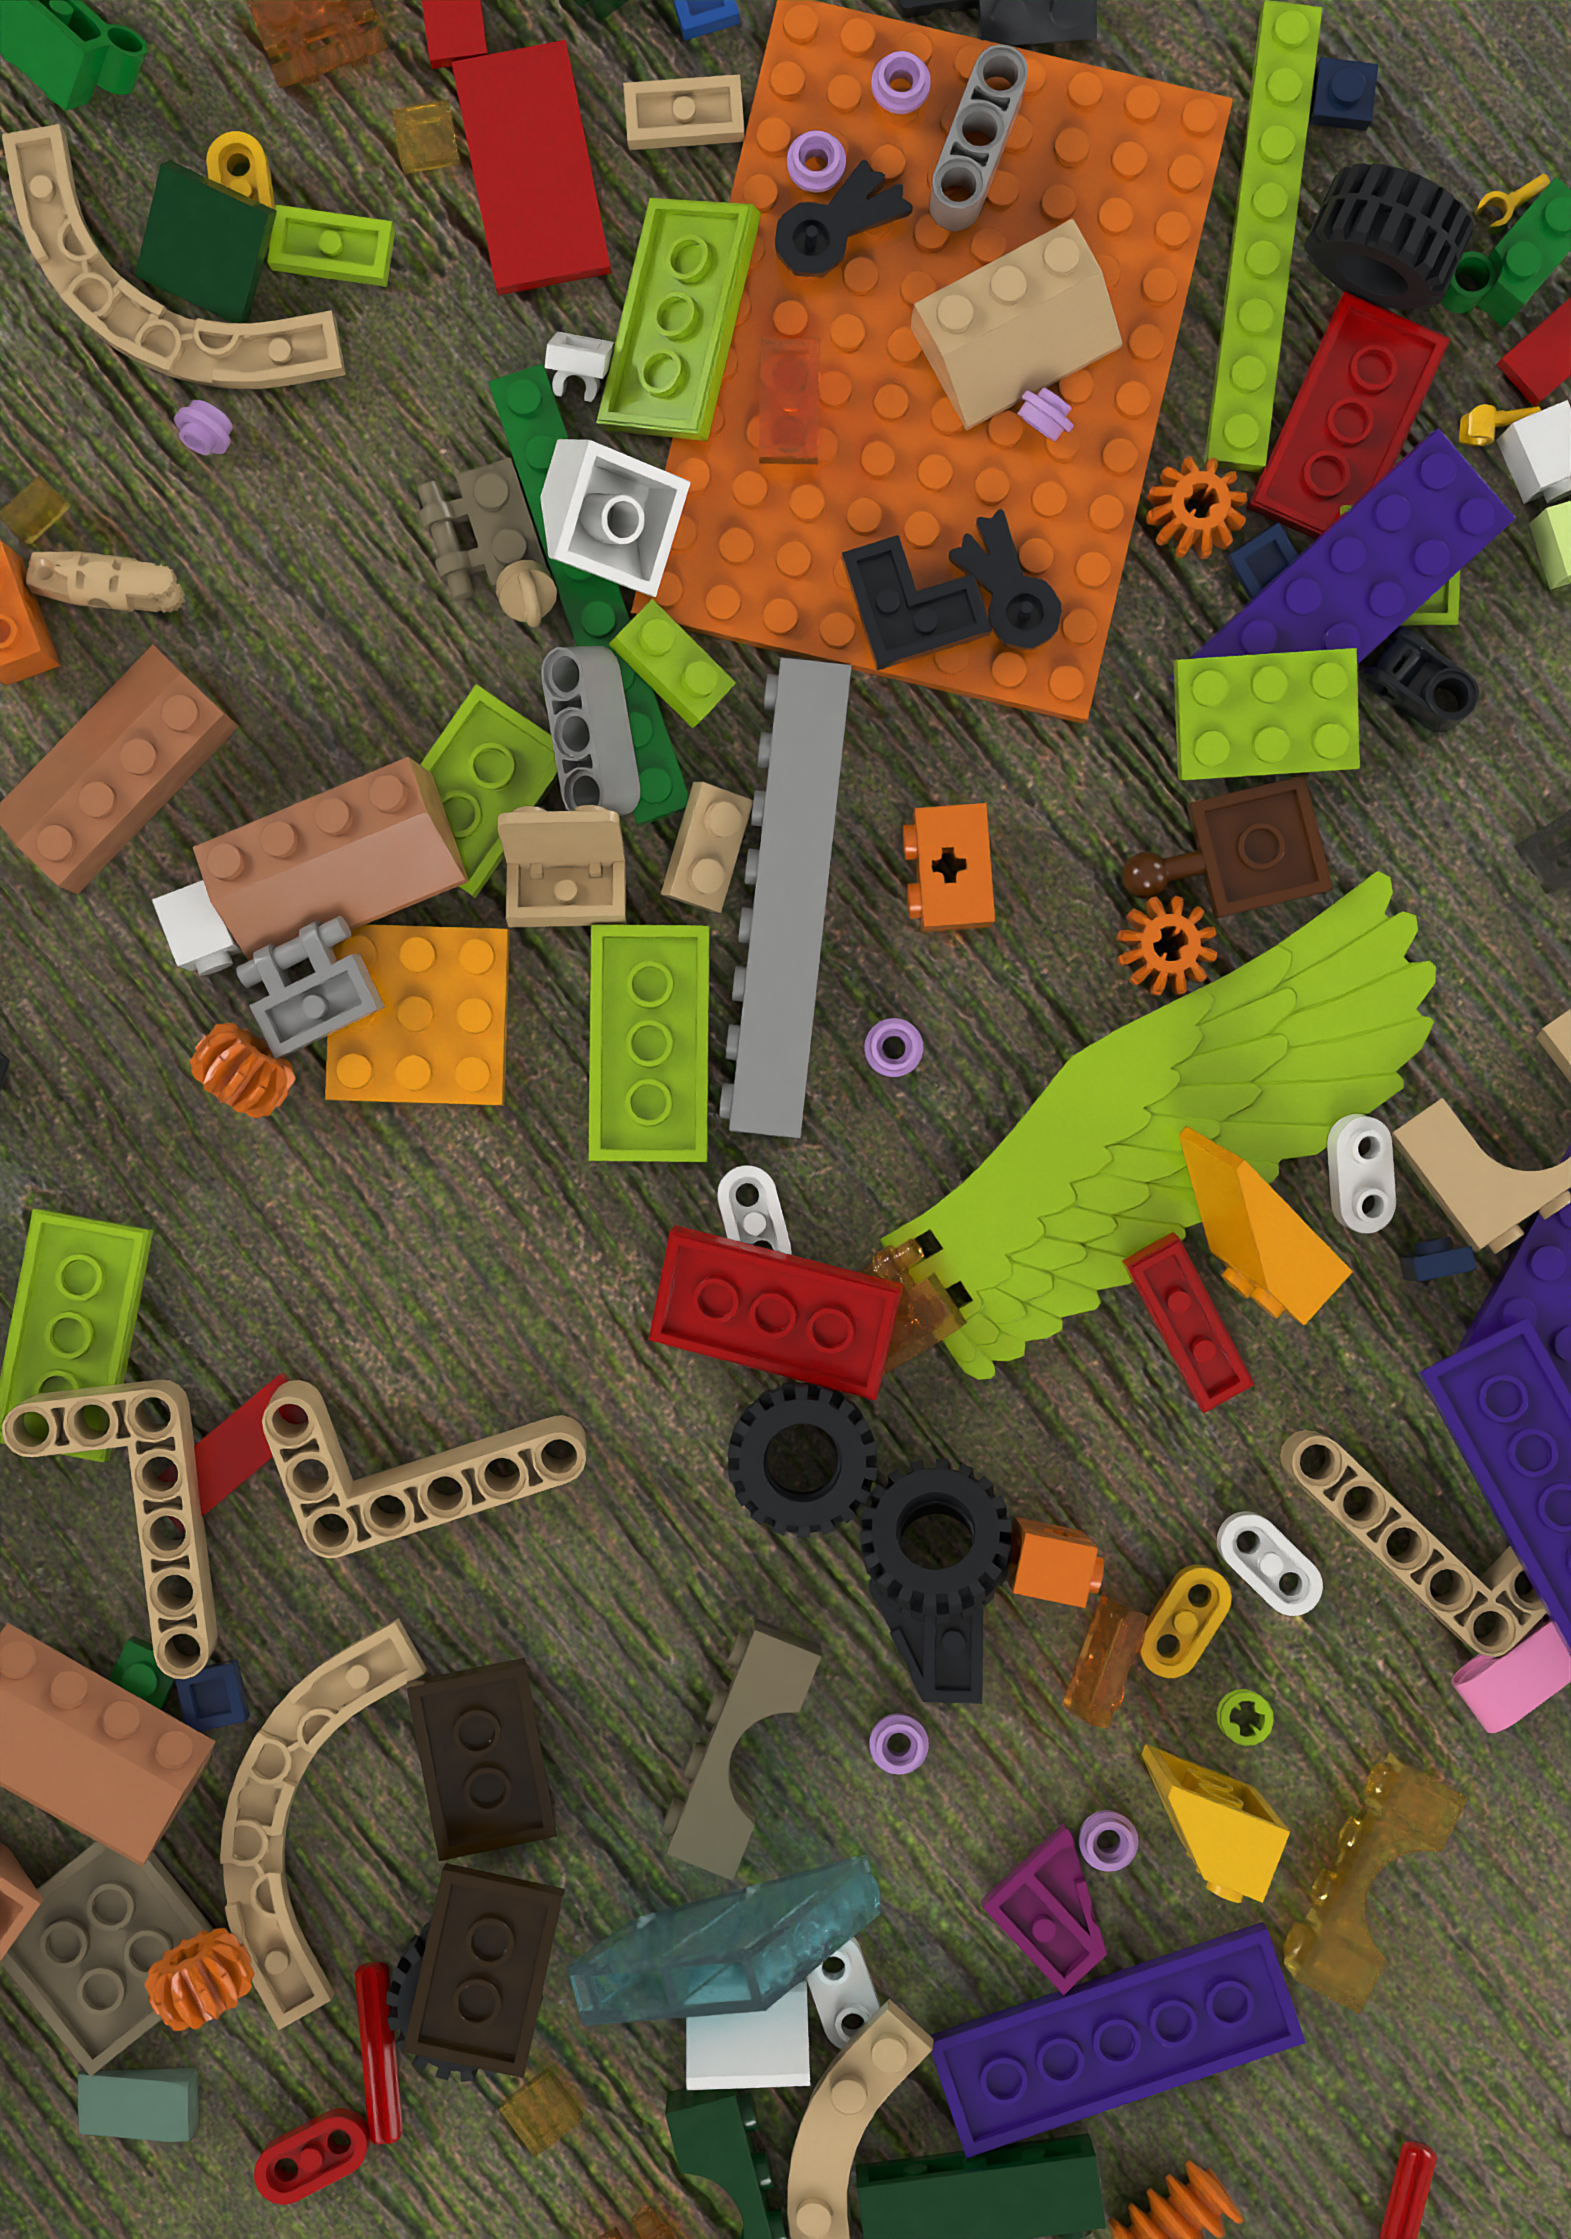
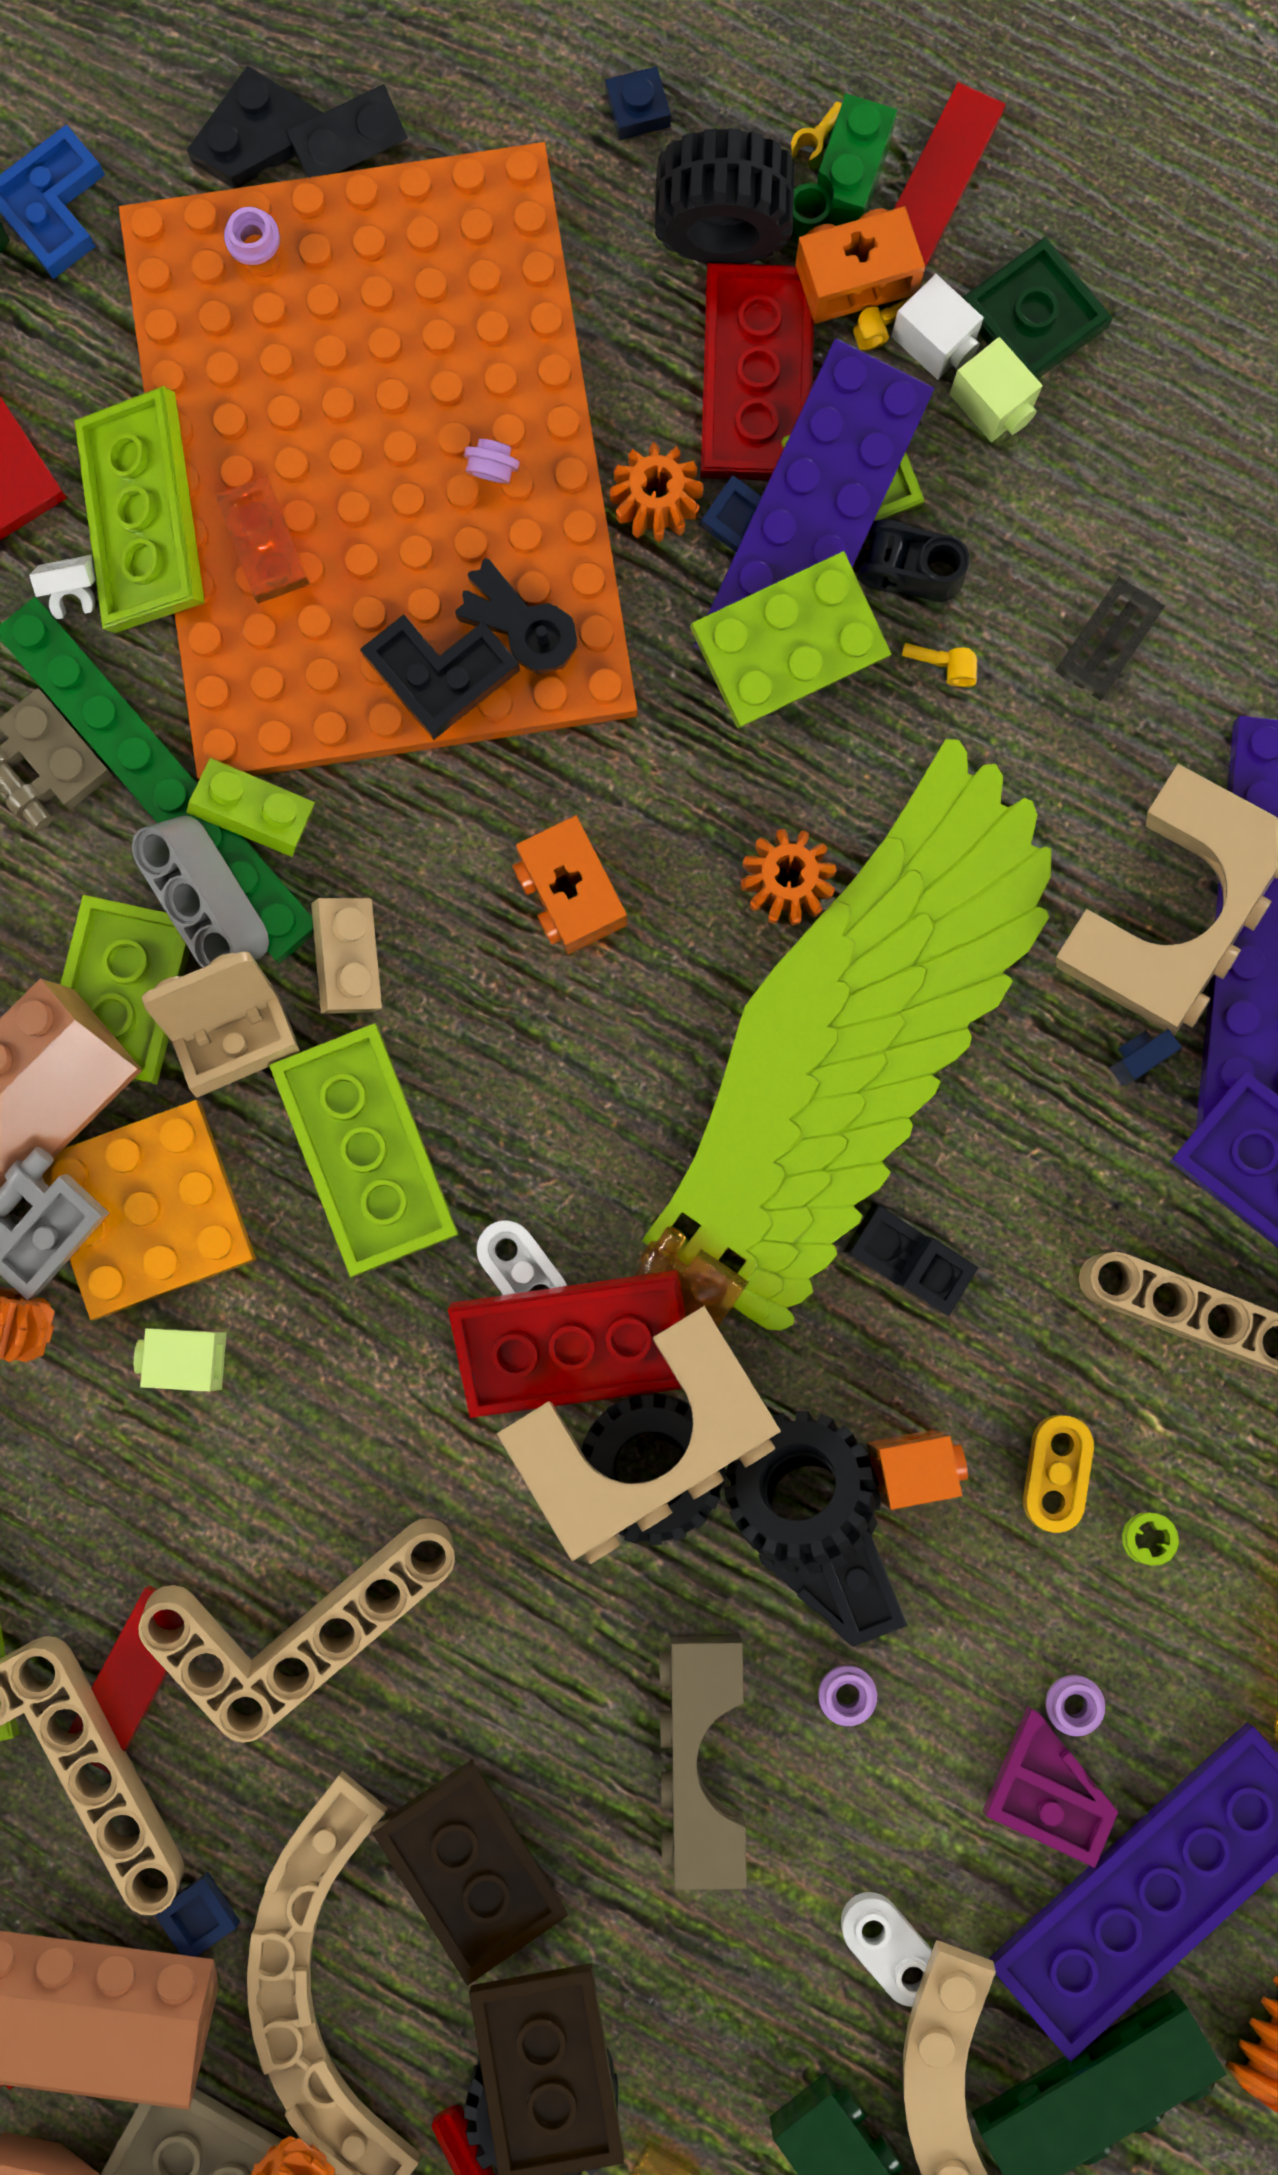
camera: 20 degrees left, 5 degrees down
(140, 1675) = (122, 1926): green plate -> none
(396, 1173) = (180, 1359): none -> yellowish green brick
(526, 591) = (96, 797): tan tile -> none
(610, 513) = (142, 695): white slope -> none
(684, 112) = (75, 337): tan plate -> none
(726, 1949) = (764, 1958): clear light blue slope -> none
(751, 2047) = (817, 2026): white slope -> none
(789, 898) = (437, 973): light grey brick -> none
(815, 235) = (228, 392): black piece -> none
(816, 144) = (199, 316): lavender plate -> none
(891, 1451) = (592, 1508): none -> tan arch
(907, 1034) = (584, 1047): lavender plate -> none
(981, 111) = (329, 232): light grey beam -> none
(1017, 324) = (434, 395): tan slope -> none
(1105, 1661) = (1002, 1540): clear orange plate -> none
(1129, 1362) = (911, 1259): none -> black slope
(1188, 1322) = (947, 1201): red tile -> none
(1221, 1824) = (1170, 1646): yellow slope -> none
(1251, 847) = (827, 763): reddish brown plate -> none
(1258, 1235) = (975, 1093): light orange slope -> none
(1263, 235) = (619, 247): lime plate -> none
(1268, 1562) = (1110, 1388): white plate -> none
(1358, 1176) = (1043, 1009): white plate -> none
(1423, 801) = (960, 663): none -> yellow hand
(1468, 372) = (859, 263): none -> orange brick

